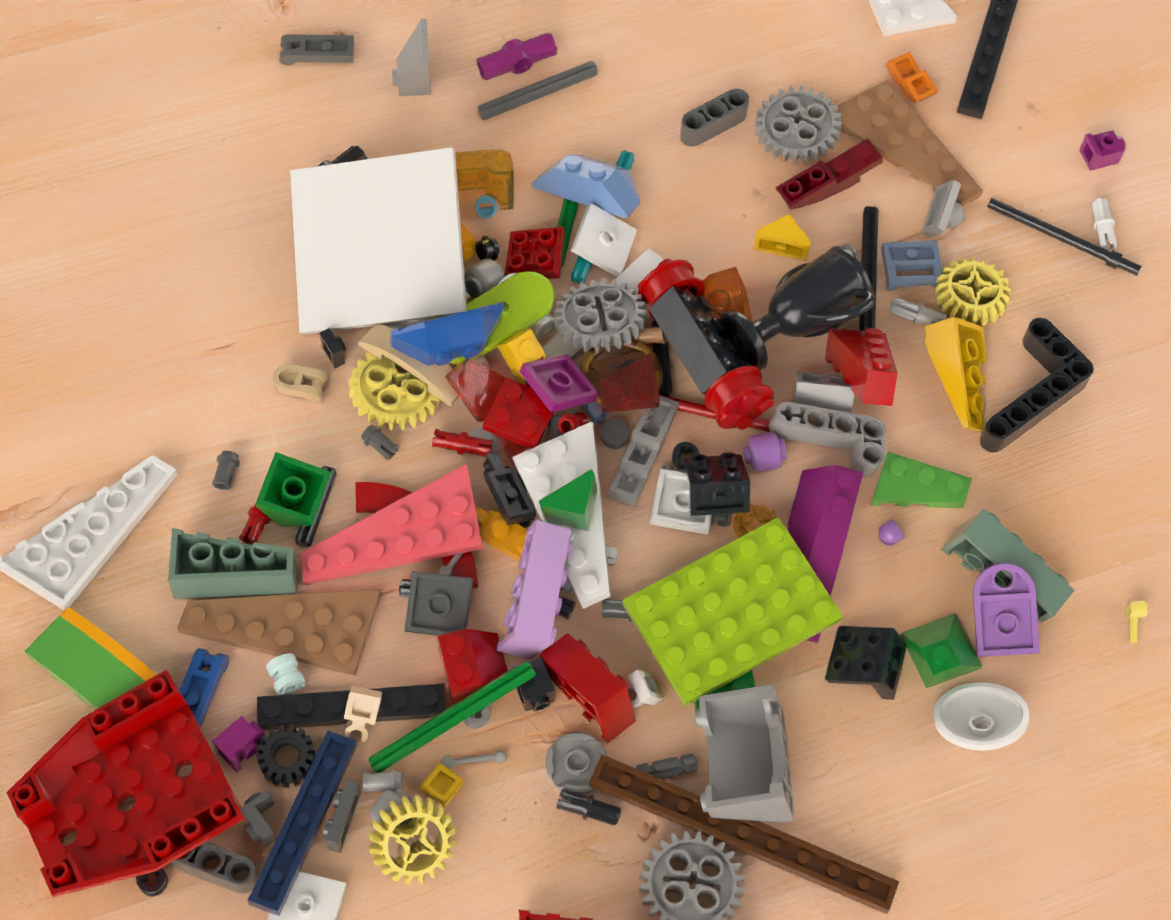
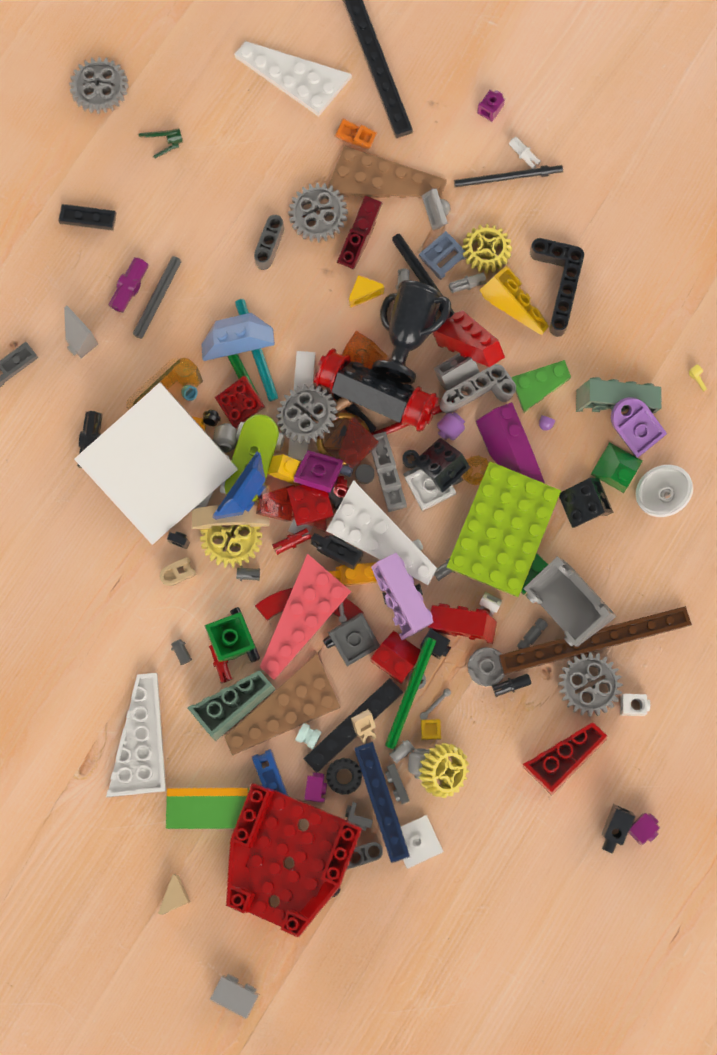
camera: 30 degrees left, 15 degrees up
(572, 503) = (387, 536): green slope -> none
(604, 240) = (270, 365): white plate -> none

